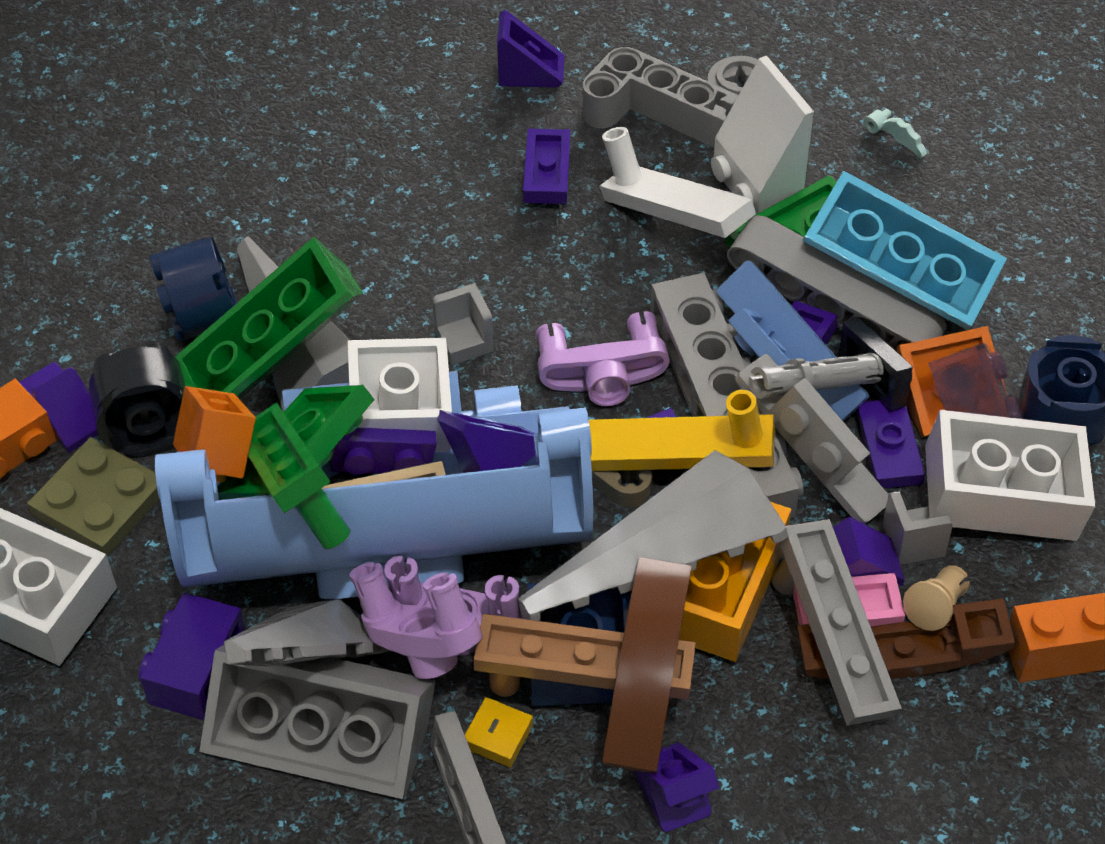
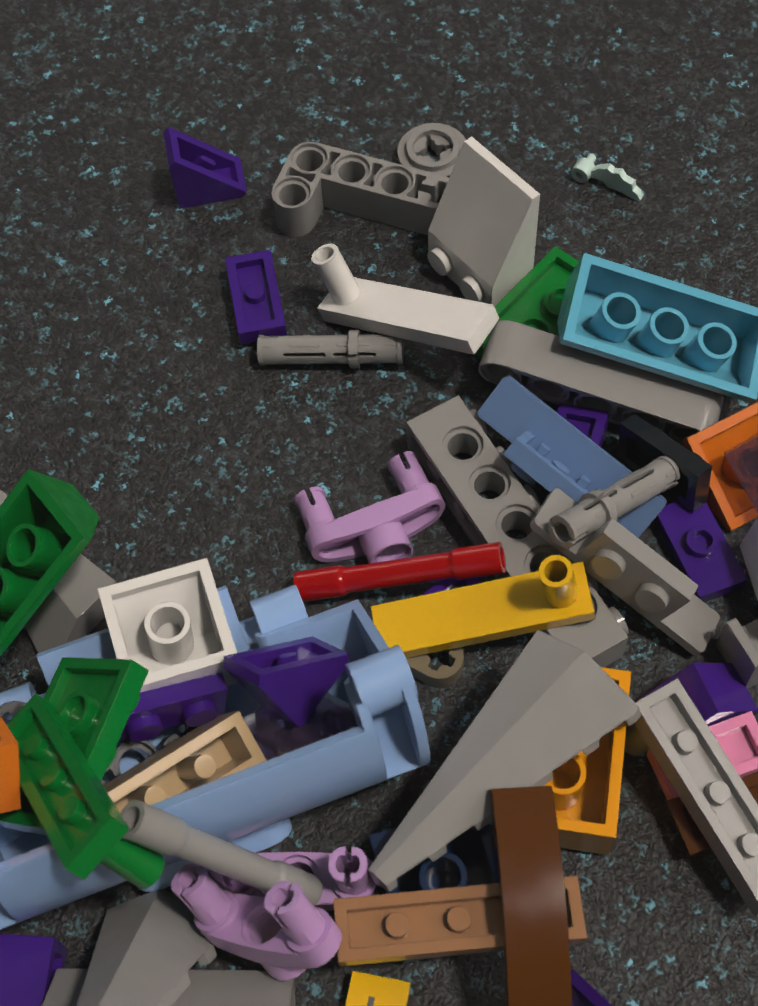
camera: 10 degrees left, 10 degrees up
(362, 510) = (172, 836): none -> light grey piece
(464, 322) = (213, 510): light grey panel -> none
(606, 221) = (330, 349): none -> light grey pin
(664, 401) = (456, 564): none -> red piece

